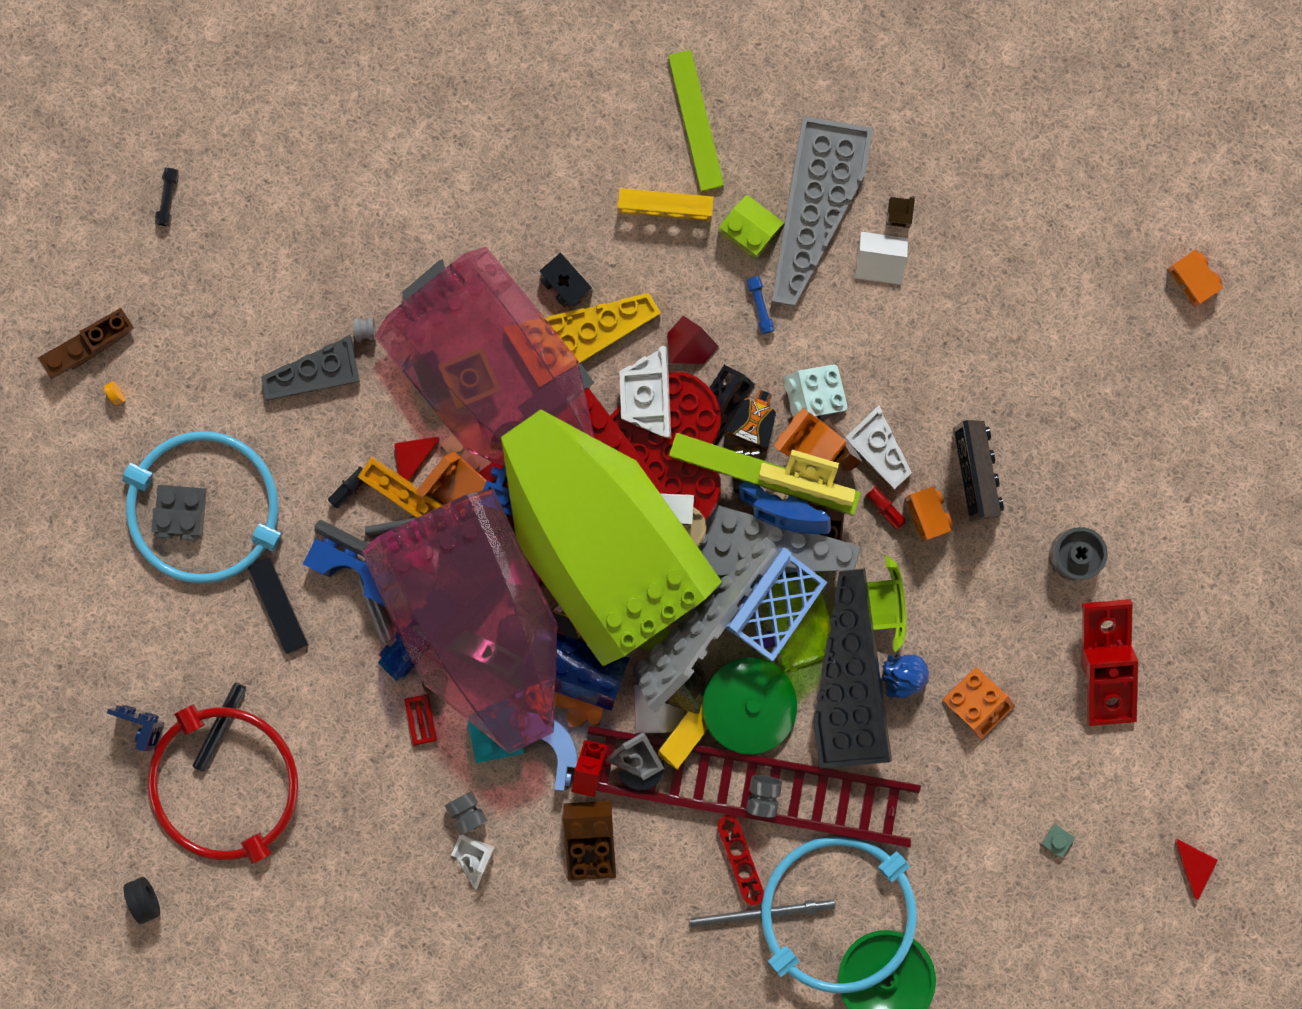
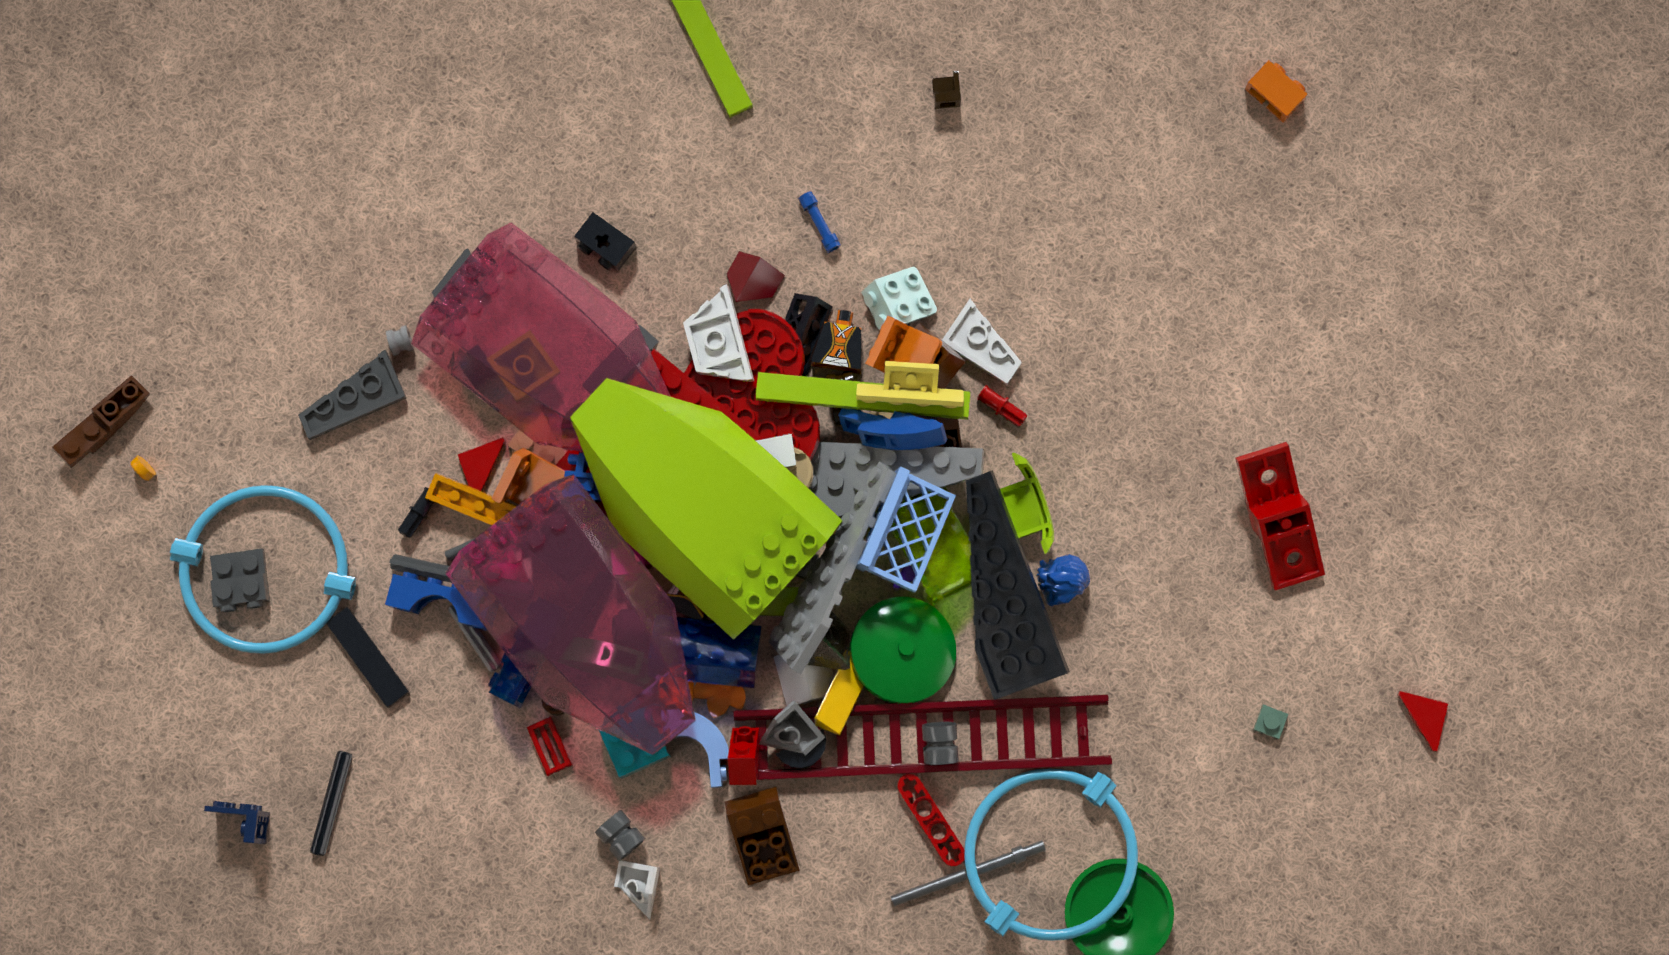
camera: 10 degrees left, 5 degrees down
(170, 177) = (157, 268): black bar -> none
(255, 846) = (296, 803): red piece -> none
(599, 326) = (651, 283): yellow wing -> none
(665, 204) = (694, 139): yellow fence -> none
(750, 226) = (790, 142): lime slope -> none
(824, 180) = (858, 77): light grey wing -> none
(881, 258) = (937, 144): white slope -> none
(928, 513) = (1049, 401): orange slope -> none
(977, 470) = (1091, 343): black slope -> none
(979, 702) = (1151, 592): orange bracket -> none
(1092, 551) = (1223, 393): dark grey wheel -> none

